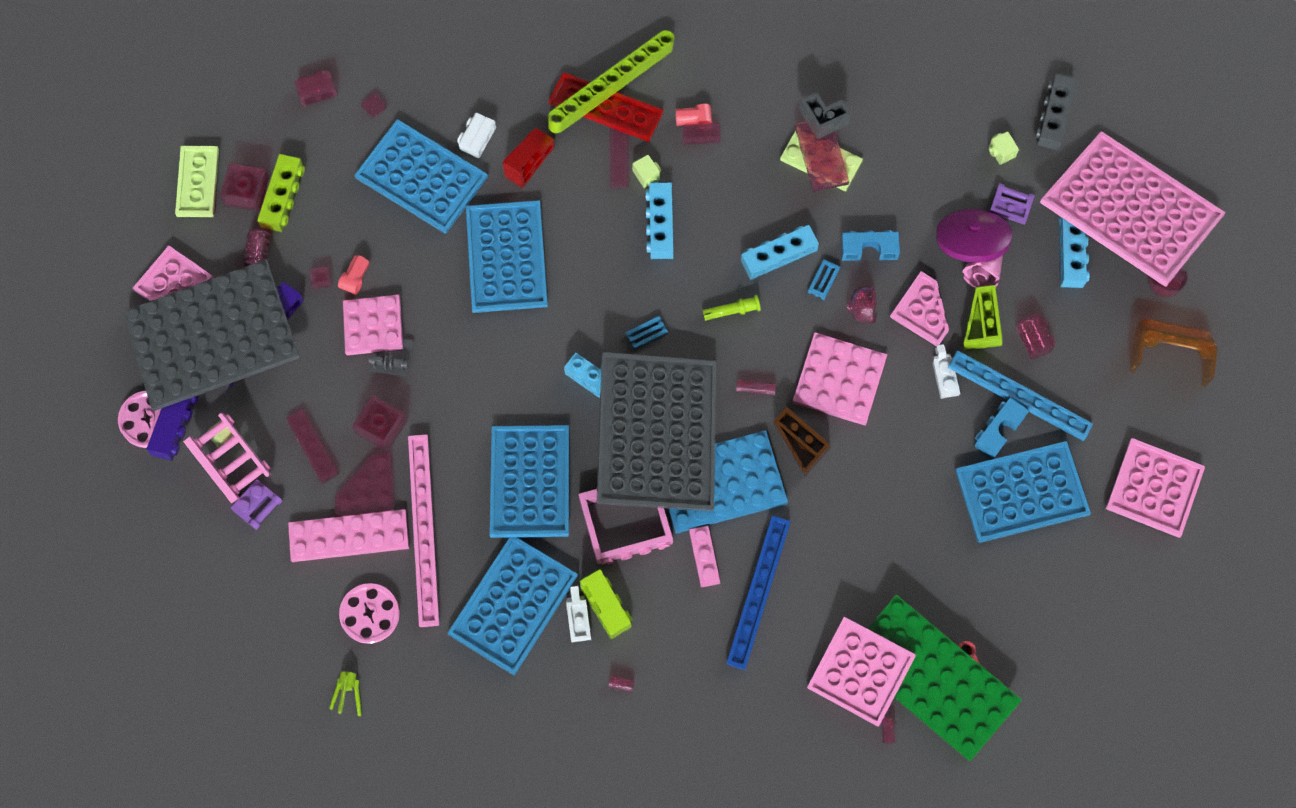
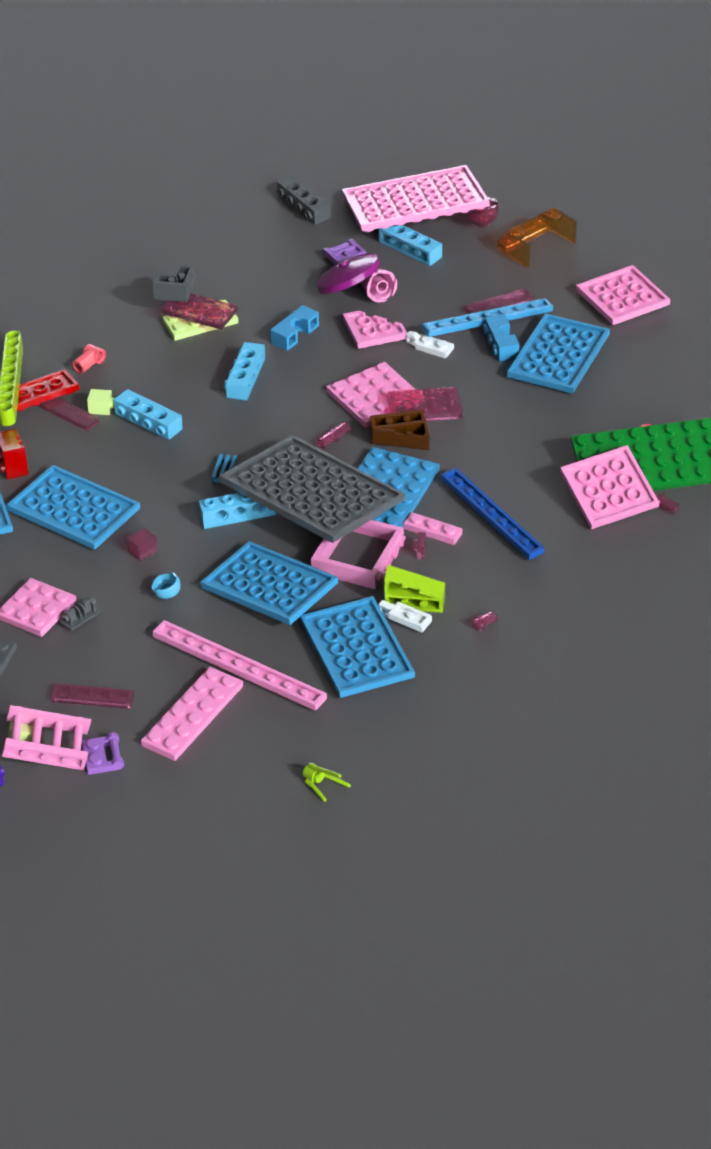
camera: 50 degrees left, 30 degrees down
(360, 610) = (278, 731): bright pink wedge -> none
(369, 489) = (167, 680): clear pink plate -> none
(380, 423) = (124, 639): clear pink brick -> none
(467, 403) = (166, 586): none -> medium azure hair
(502, 345) = (142, 544): none -> clear pink brick
(670, 564) = (420, 545): none -> clear pink plate
(701, 134) = (106, 363): clear pink plate -> none
(741, 306) = (262, 410): lime pin -> none
(818, 292) = (288, 366): dark azure tile -> none
(853, 433) = (435, 402): none -> clear pink plate
(863, 305) = (336, 349): clear pink cylinder -> none
(984, 320) = (414, 301): lime wedge -> none
(1003, 147) = (299, 234): yellowish green brick -> none
(1035, 336) = (453, 289): clear pink brick -> none
(1053, 388) = (500, 301): none -> clear pink tile

